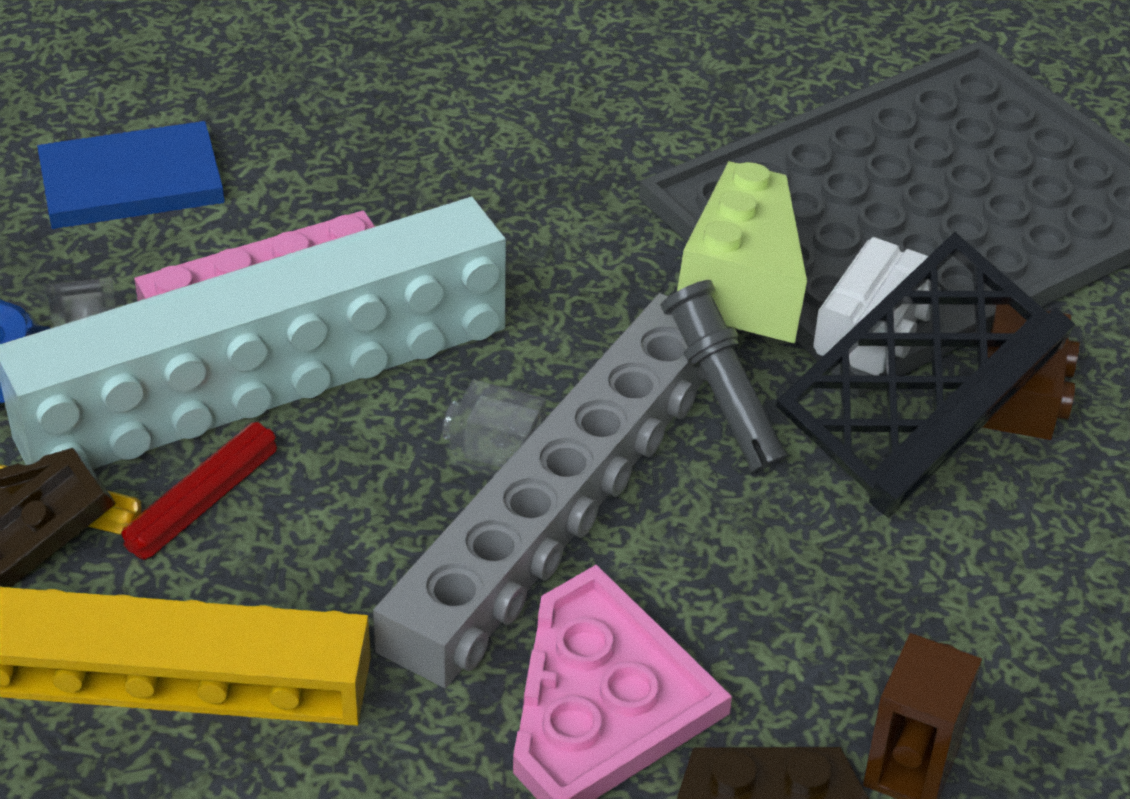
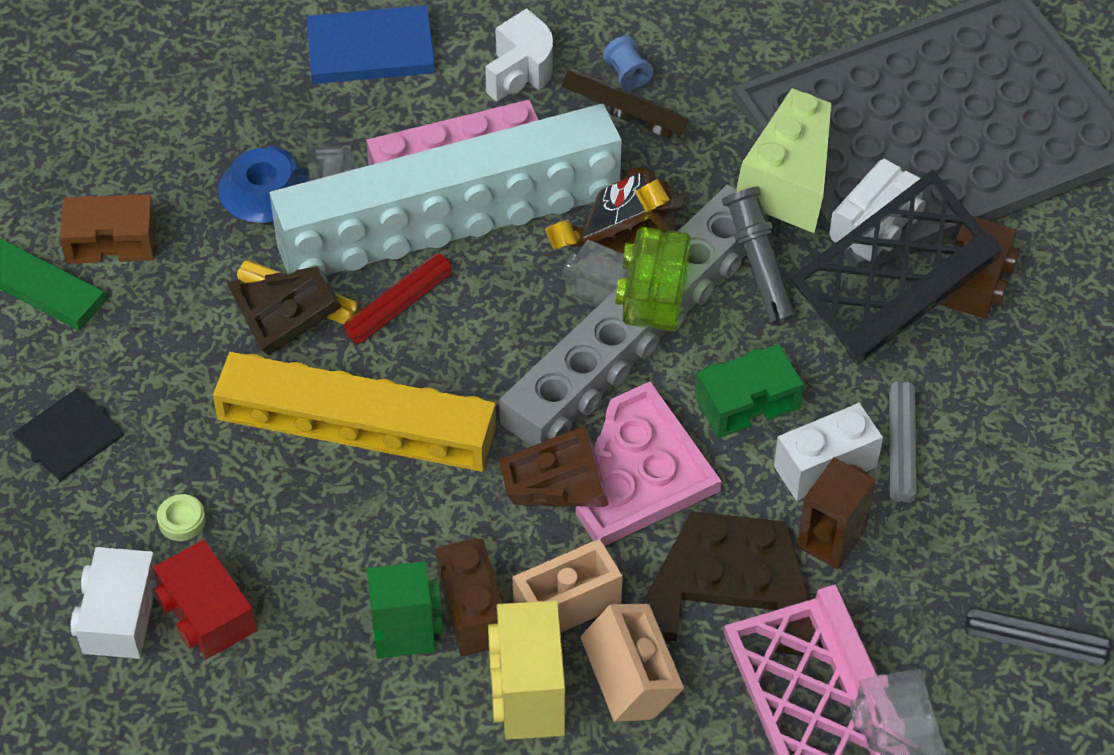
camera: 10 degrees right, 10 degrees up
(343, 168) = (524, 56): none -> white brick
(475, 712) = (556, 473): none -> reddish brown wing
(484, 159) = (629, 65): none -> medium blue bush
(505, 201) = (626, 104): none -> dark brown wing
(525, 344) = (620, 211): none -> torso
(585, 417) = (654, 279): none -> clear neon green brick
(742, 560) = (747, 388): none -> green brick
(860, 638) = (810, 448): none -> white brick
(983, 616) = (902, 442): none -> light grey axle

